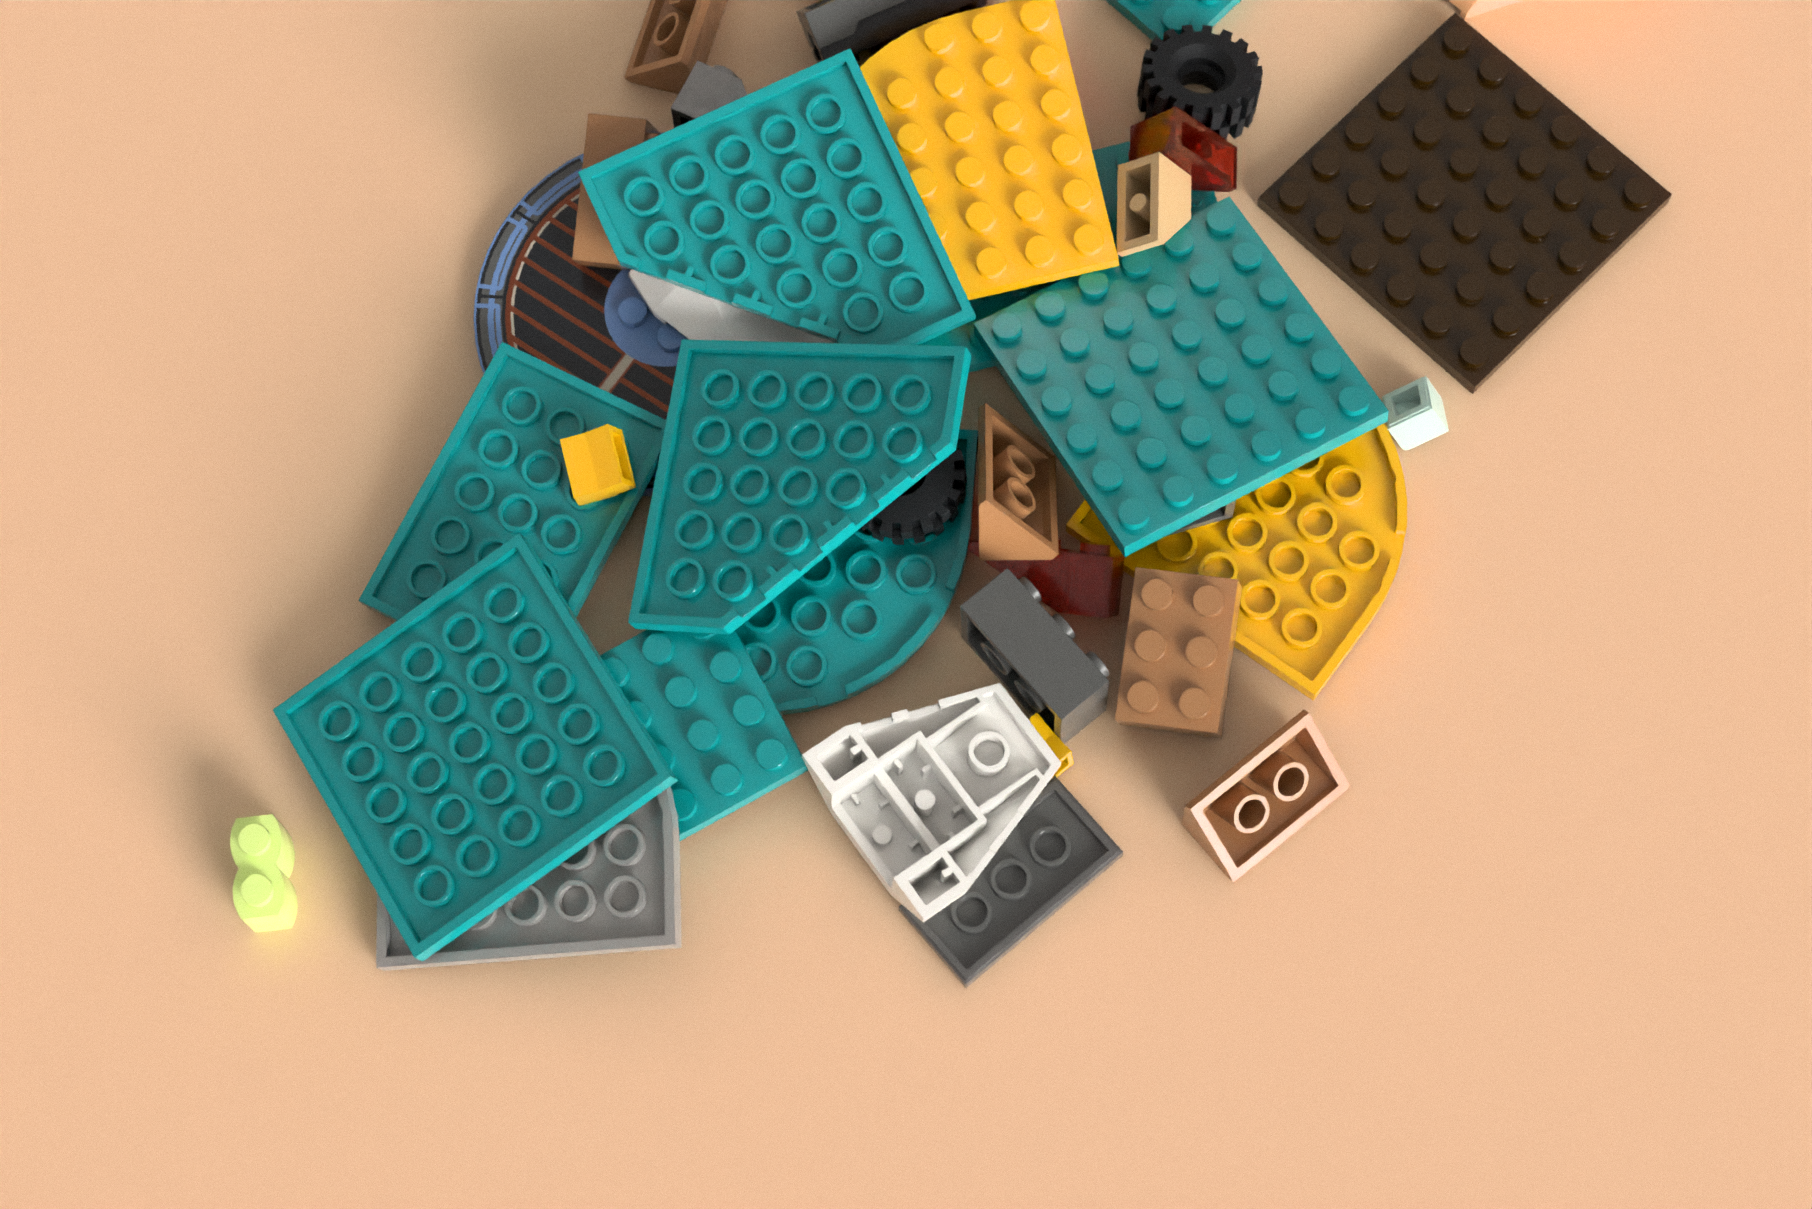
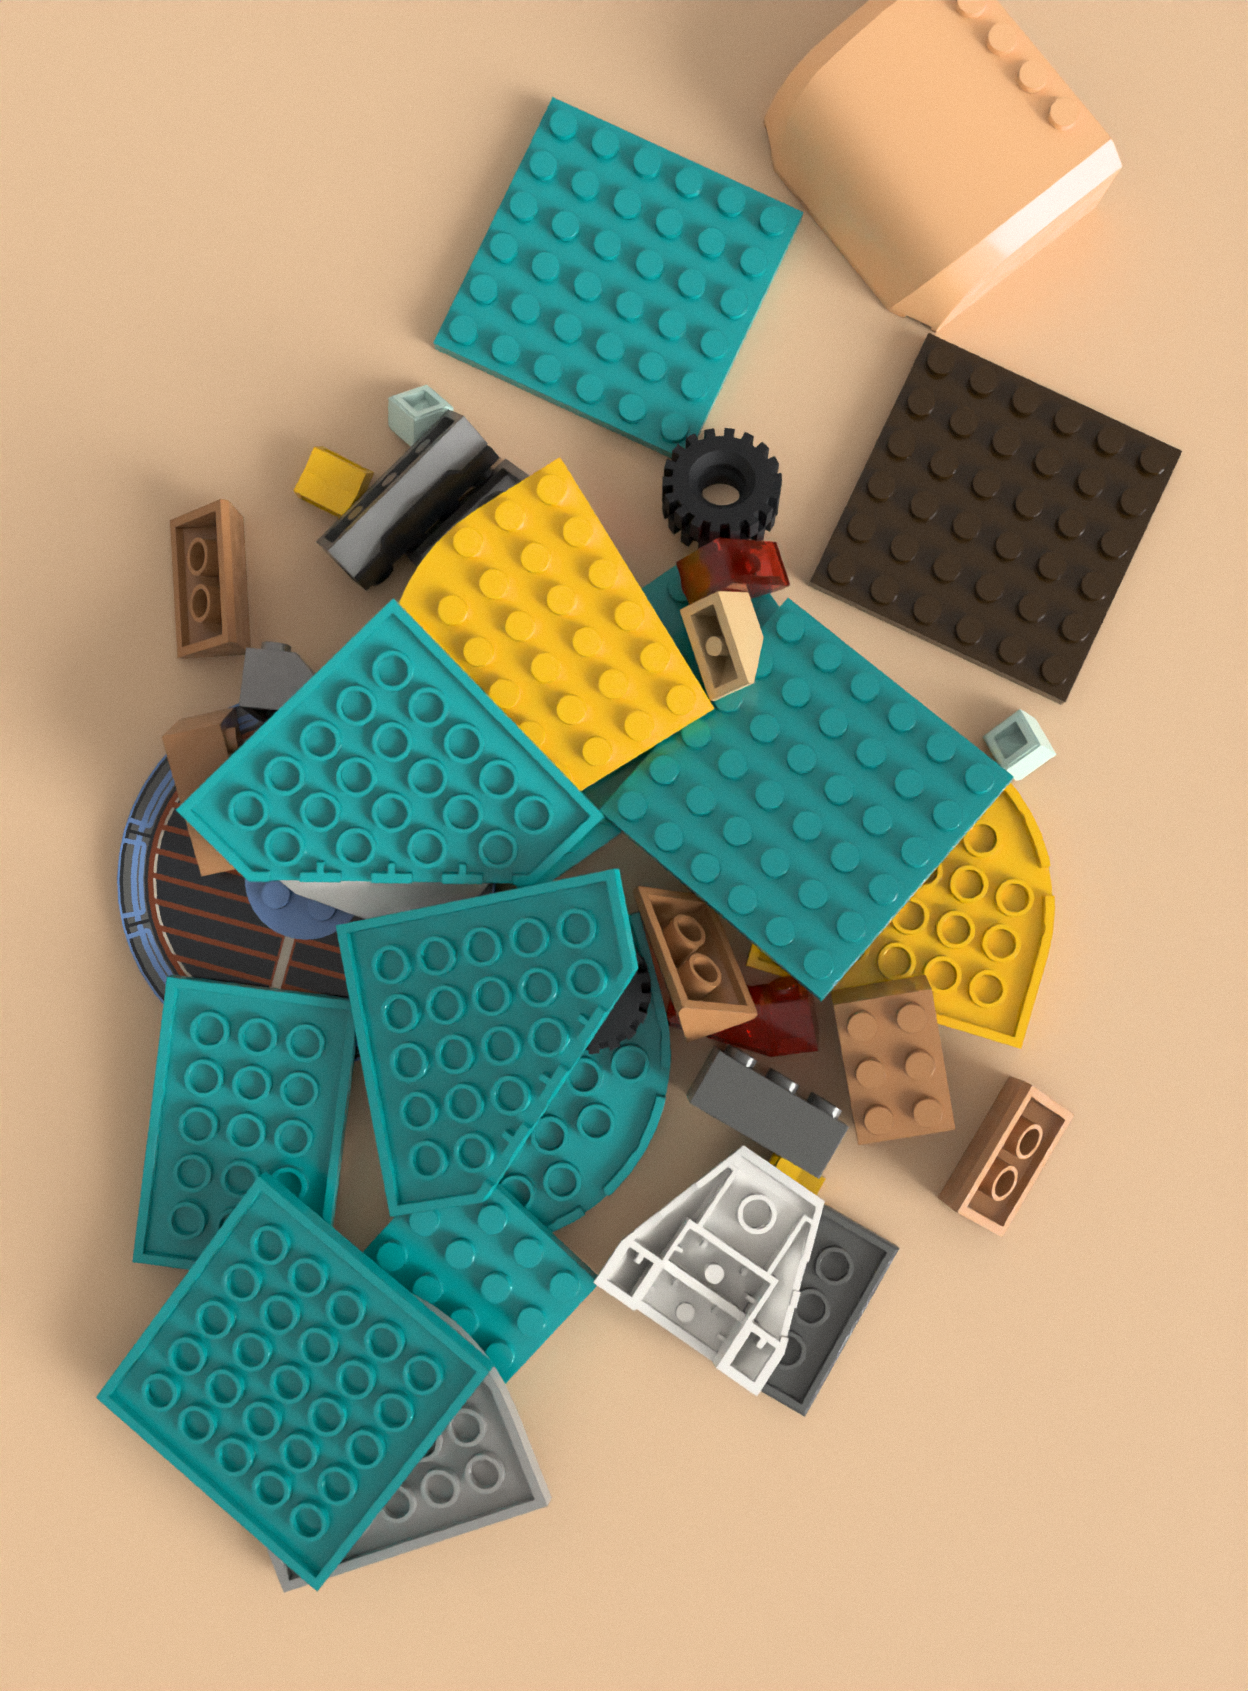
camera: 25 degrees left, 15 degrees up
(262, 883) = (153, 1551): yellowish green brick -> none
(597, 464) = (303, 1070): yellow piece -> none

